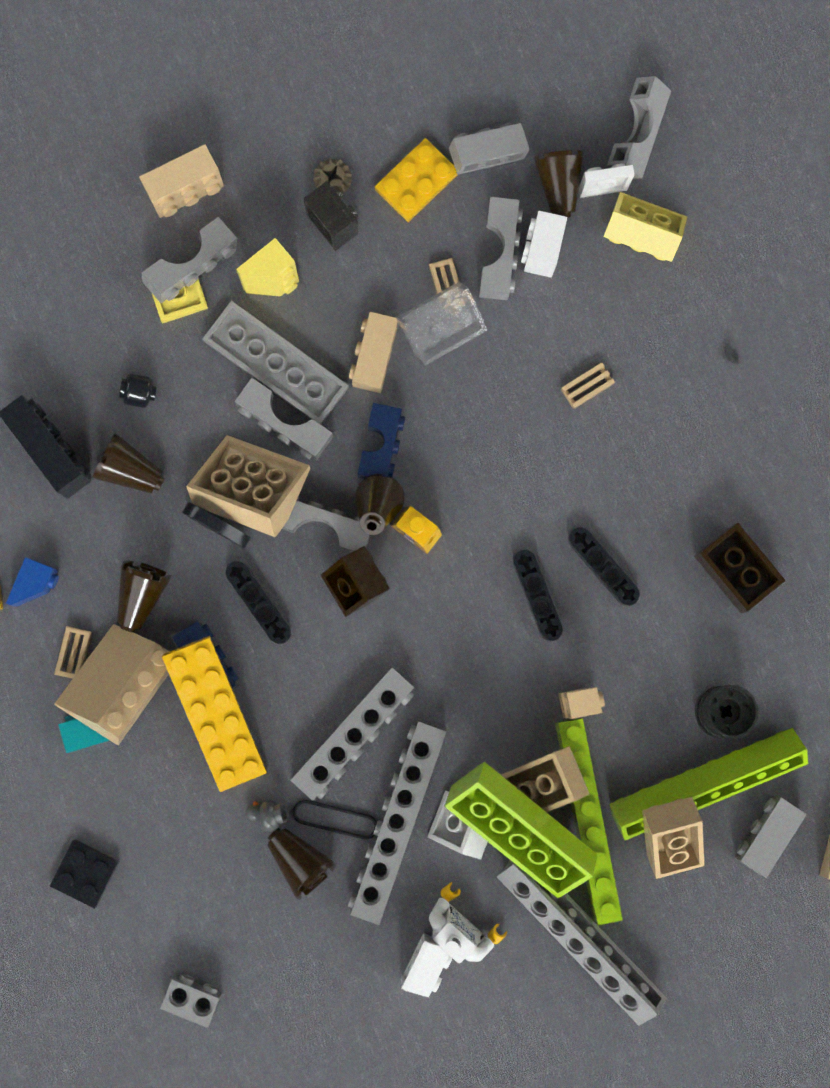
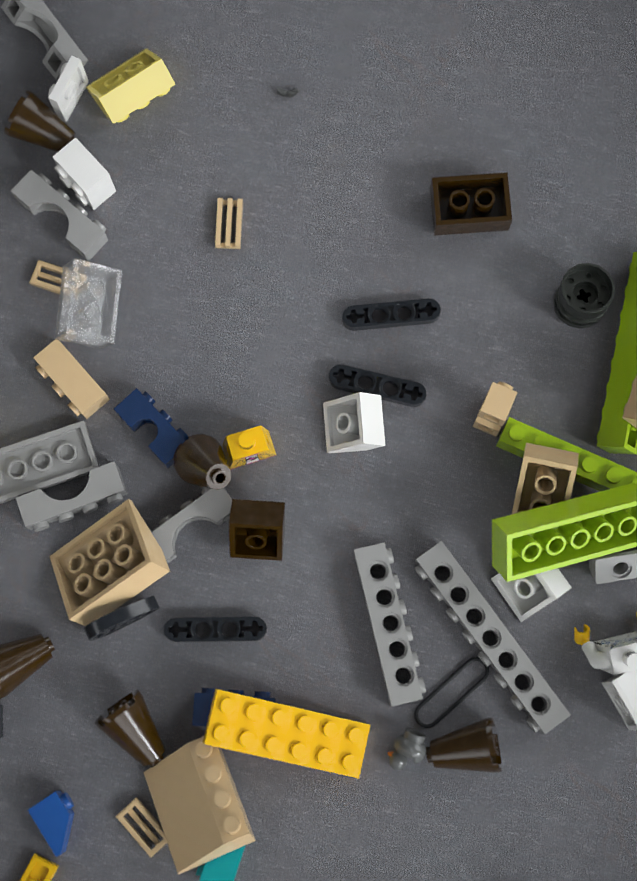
camera: 45 degrees left, 5 degrees down
(493, 598) = (354, 423): none -> white slope

